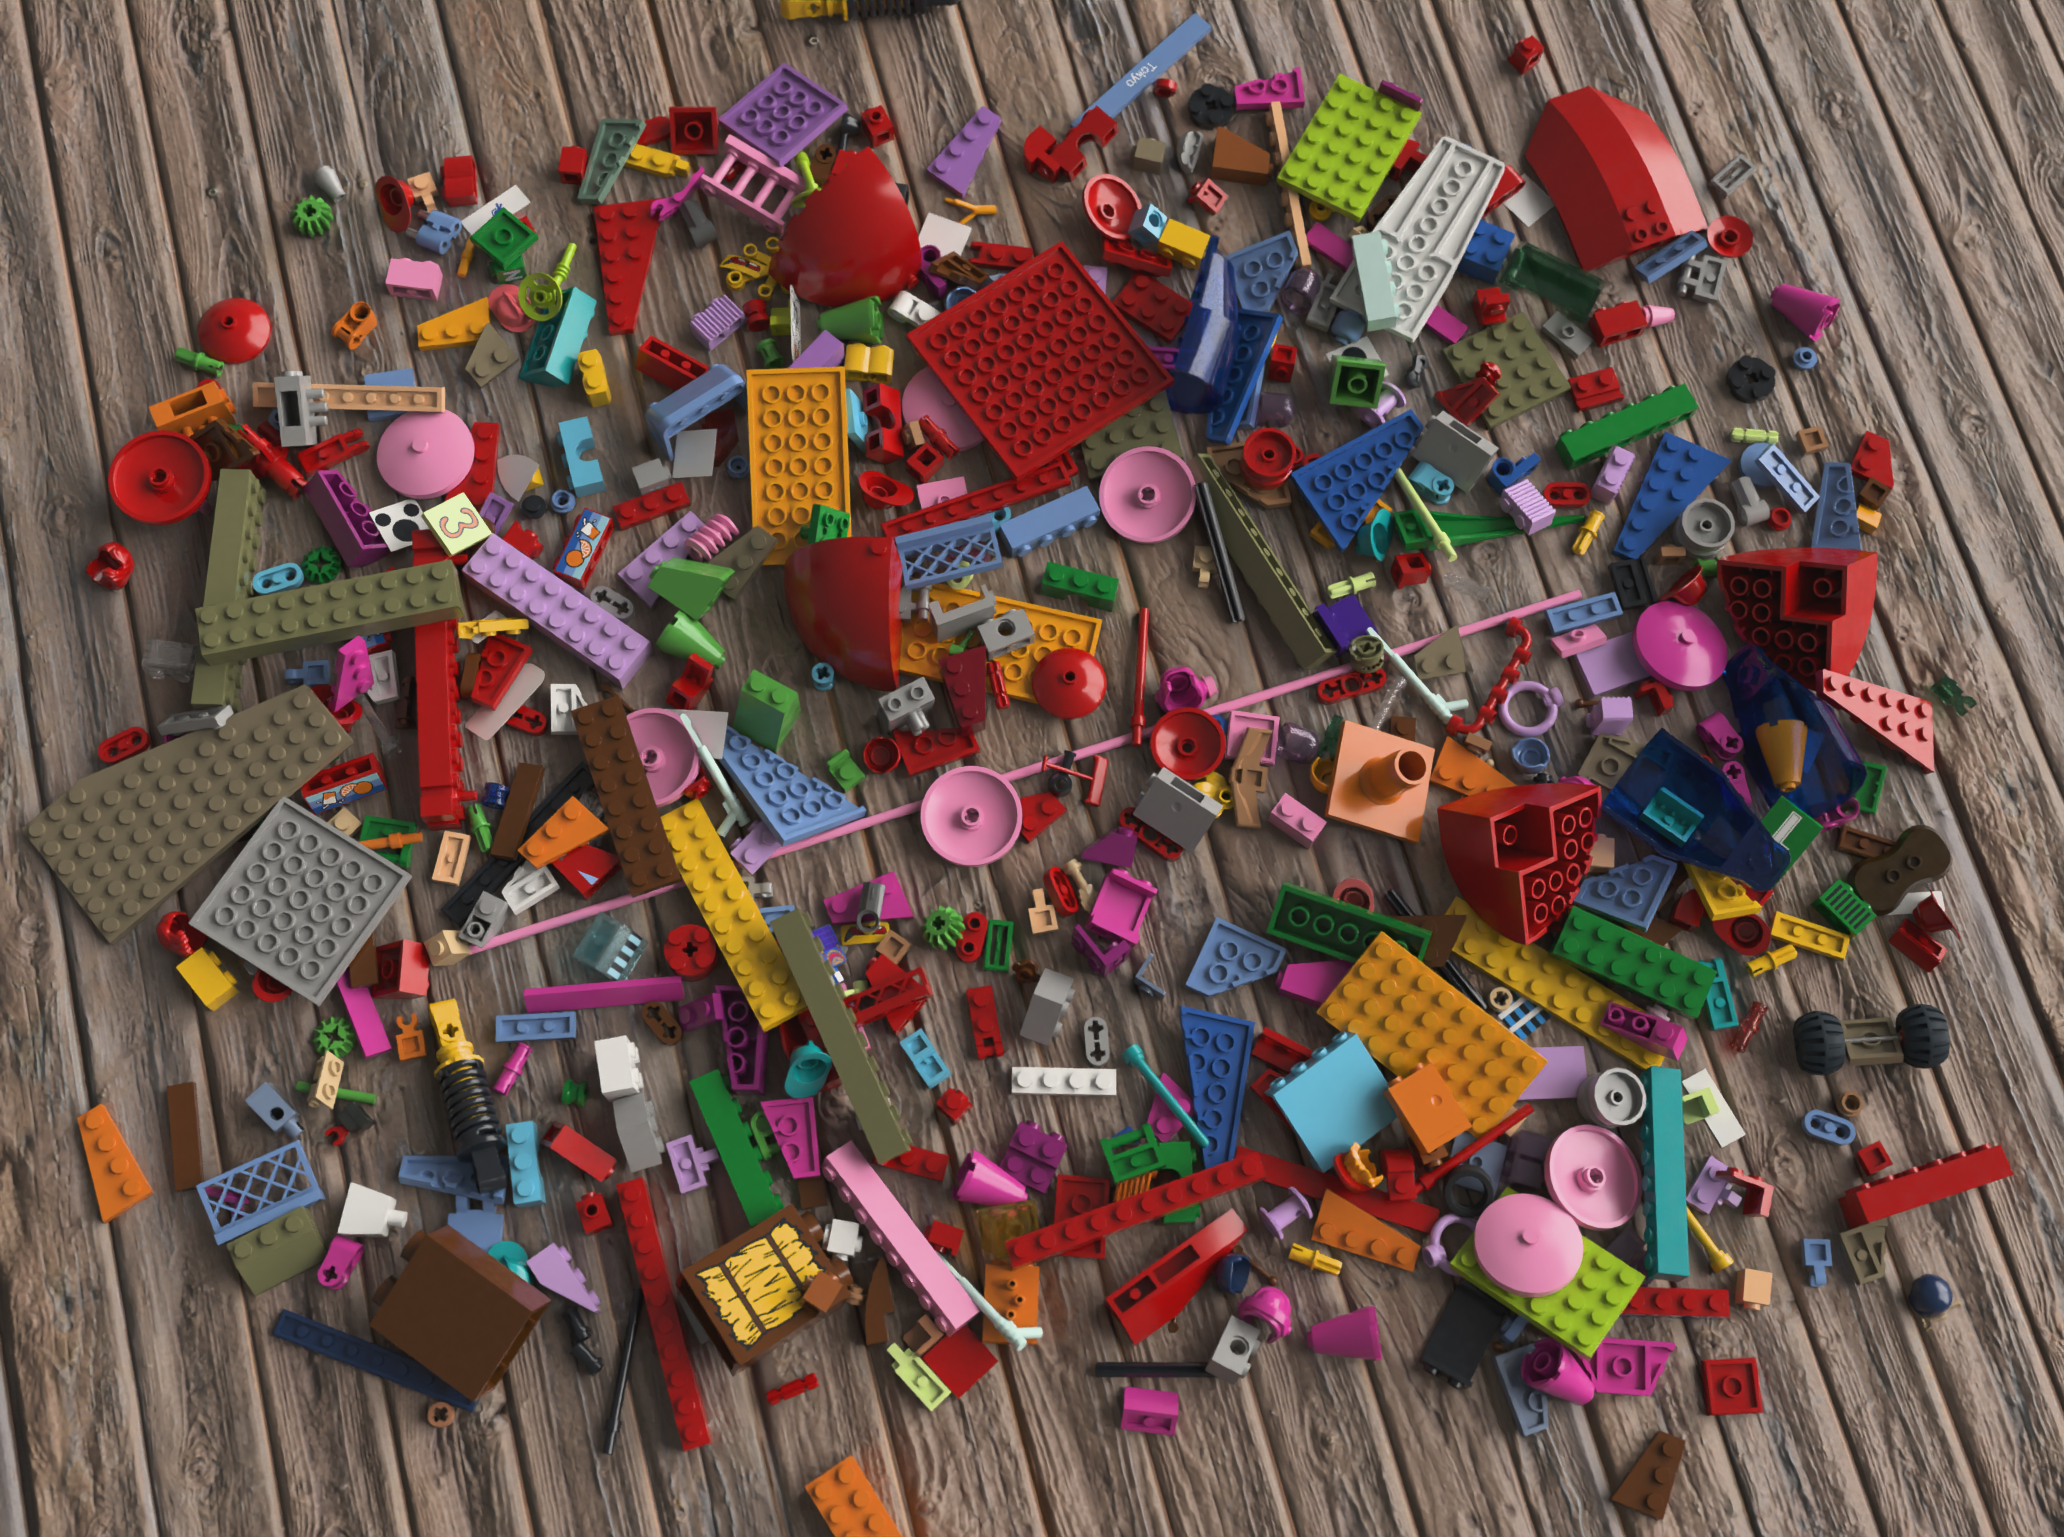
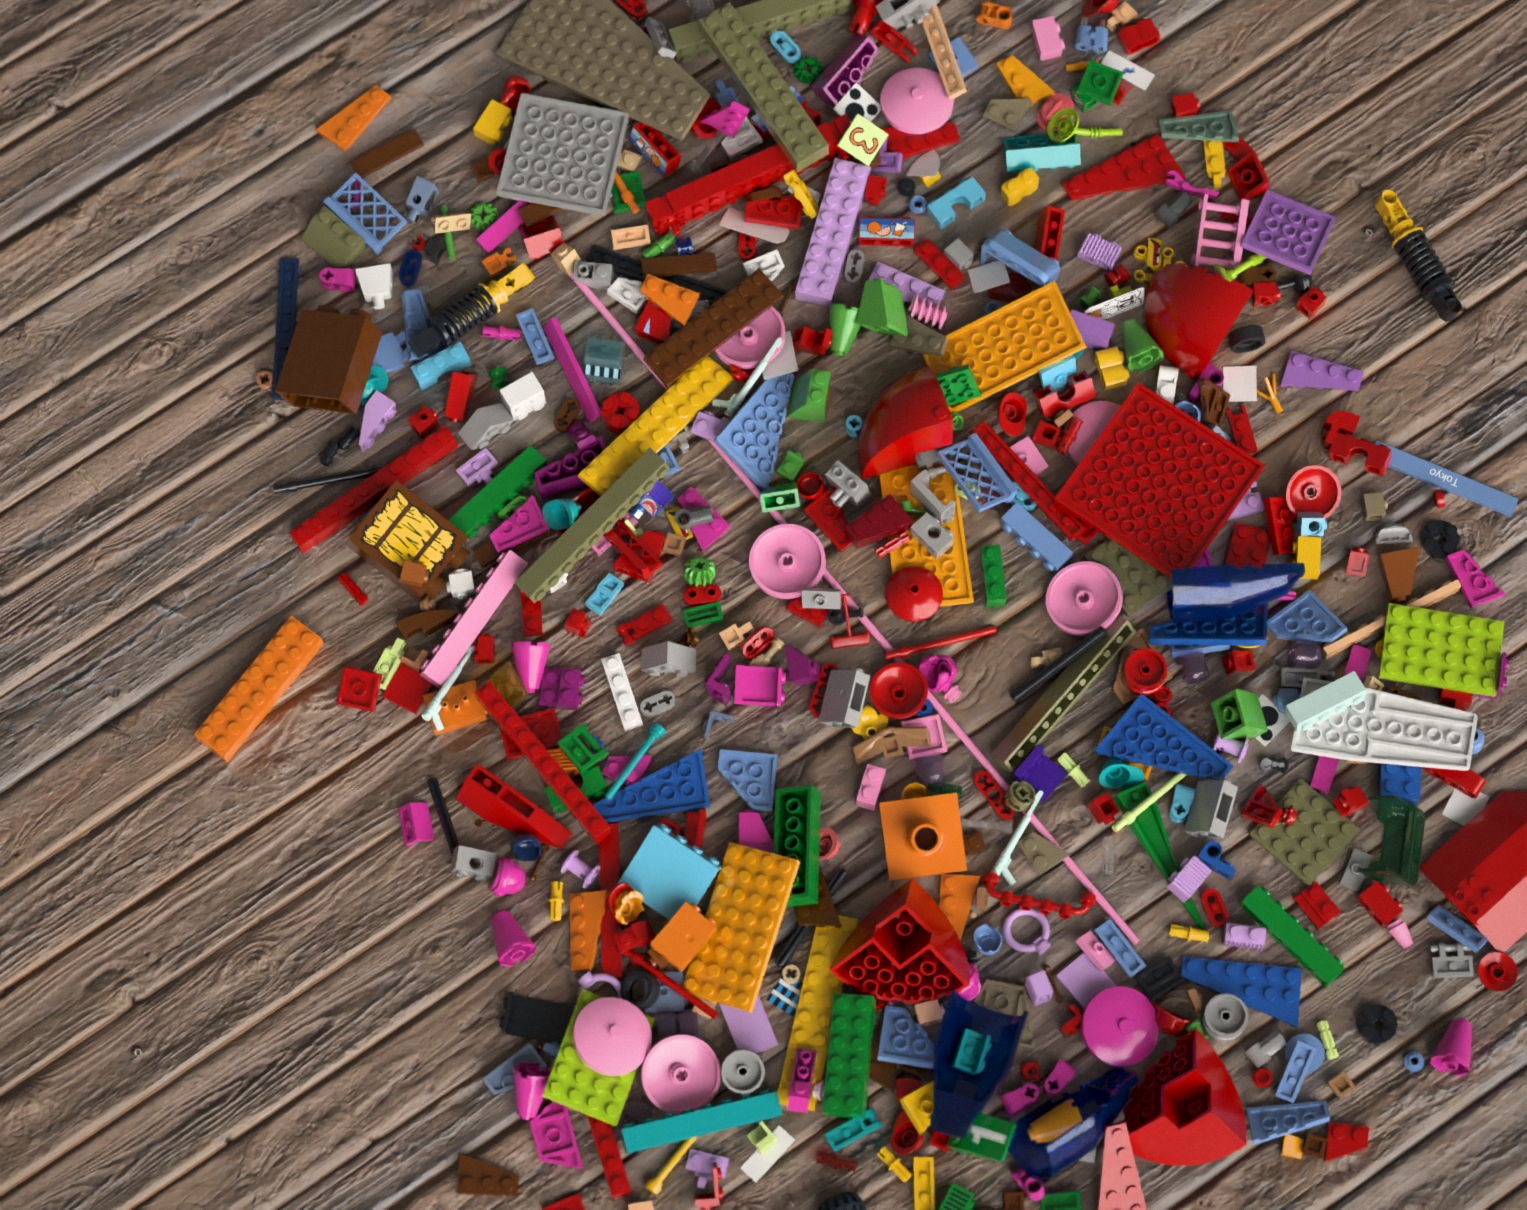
camera: 80 degrees right, 0 degrees up
(270, 1016) = (482, 171): none -> reddish brown plate
(367, 1160) = (410, 269): none -> clear blue plate
(885, 793) = (780, 497): none -> green slope
(938, 1426) = (359, 689): none -> red tile
(1038, 791) = (821, 598): none -> light grey plate

